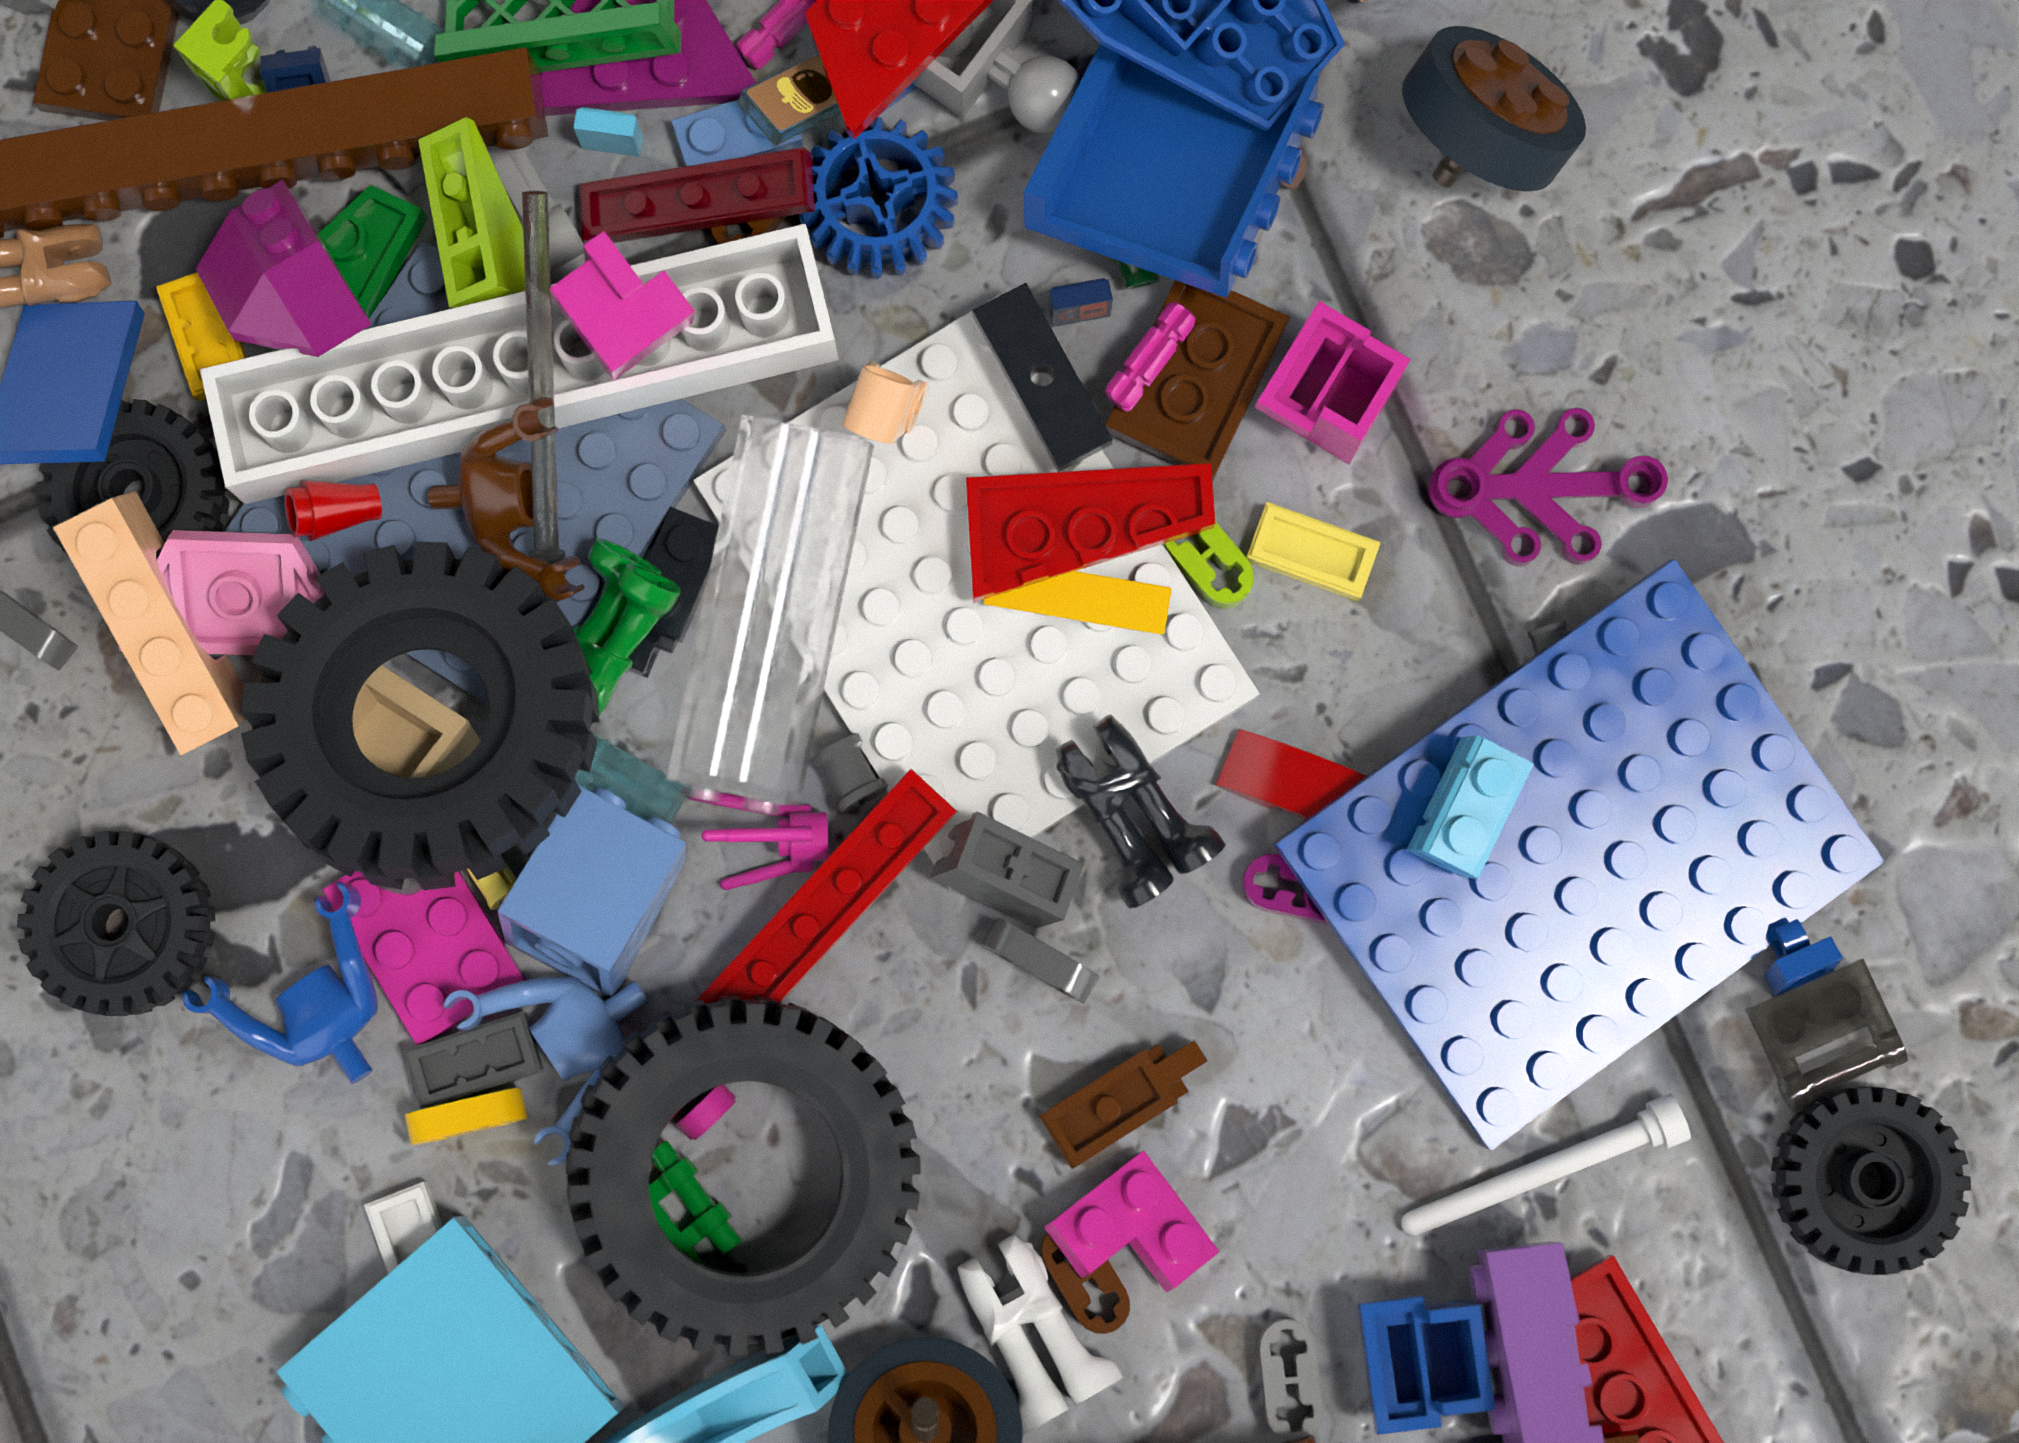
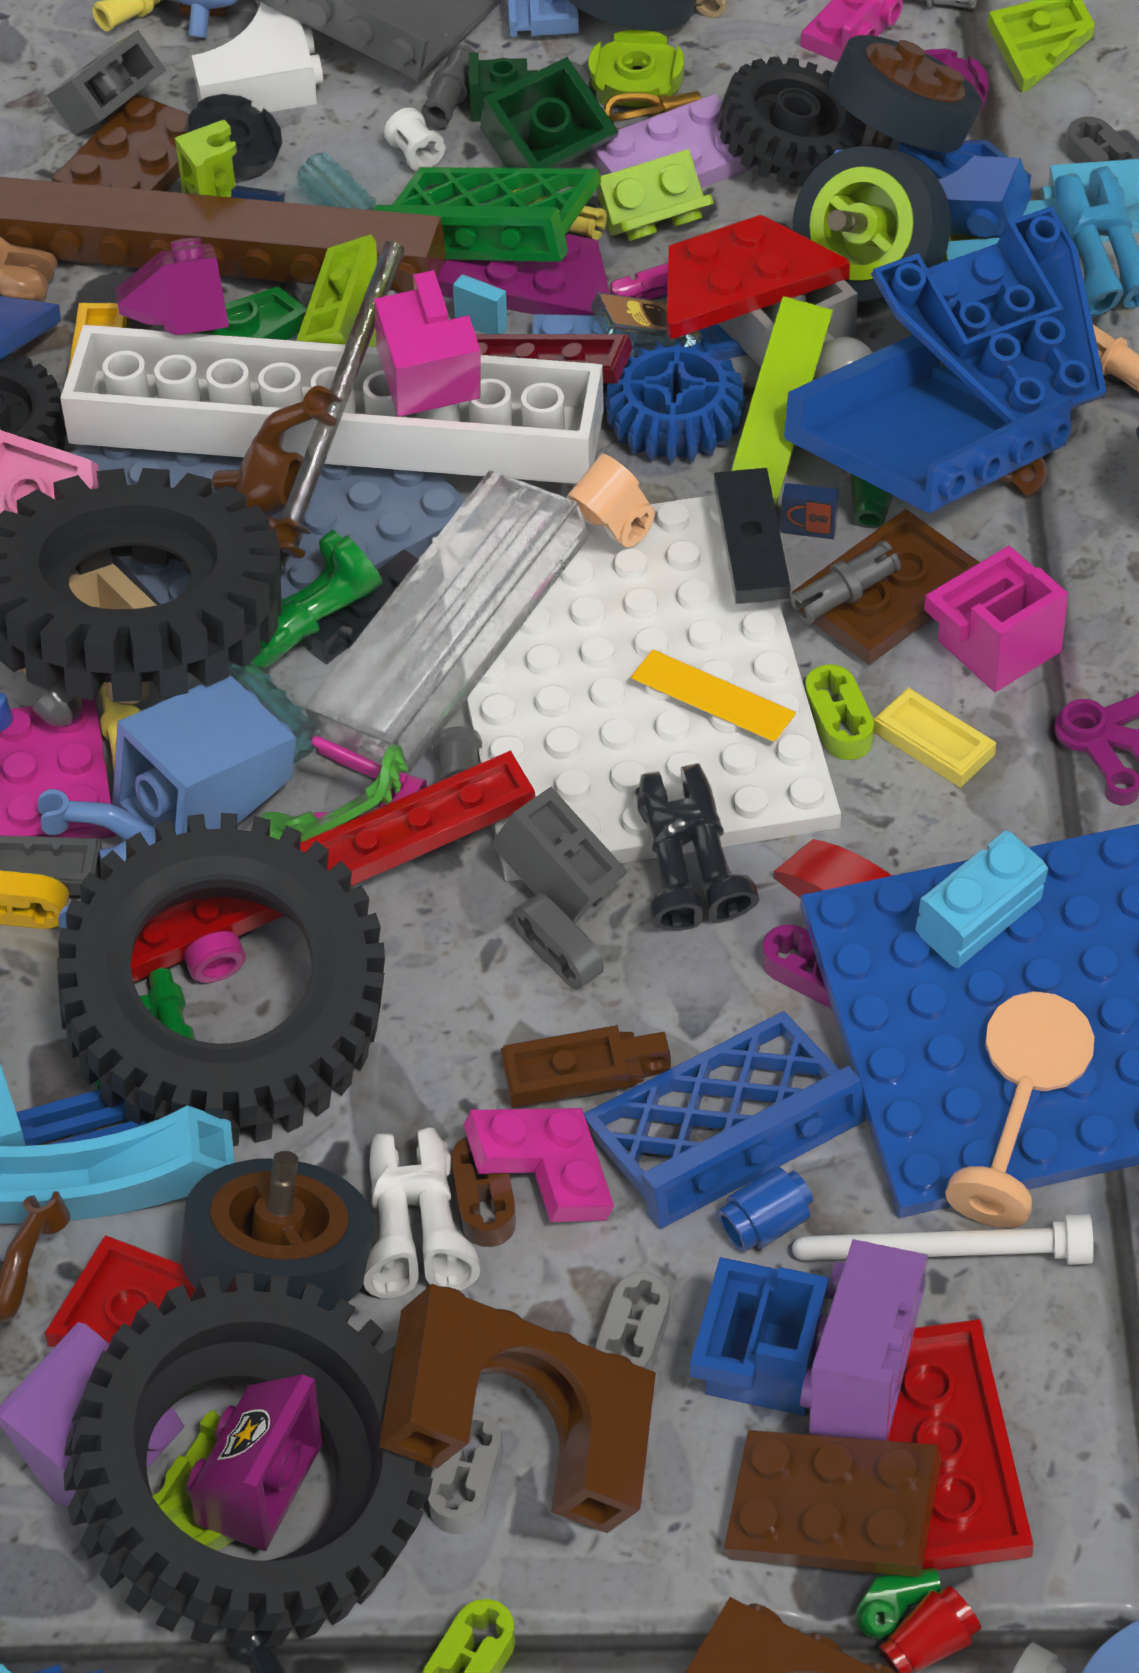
camera: 25 degrees right, 30 degrees down
(329, 507) = (132, 451): red cone -> none
(618, 1386) = (74, 1117): none -> blue tile
(731, 913) = (376, 792): none -> bright green piece
(996, 169) = (787, 364): none -> lime slope
(1071, 520) = (733, 634): red wing -> none
(1150, 356) = (817, 563): dark pink axle -> none
(1164, 405) = (845, 582): none -> dark grey pin
(1323, 1135) = (748, 1143): none -> blue fence
(1366, 1202) = (766, 1209): none -> blue brick
(1568, 932) = (1038, 1046): none -> light nougat piece

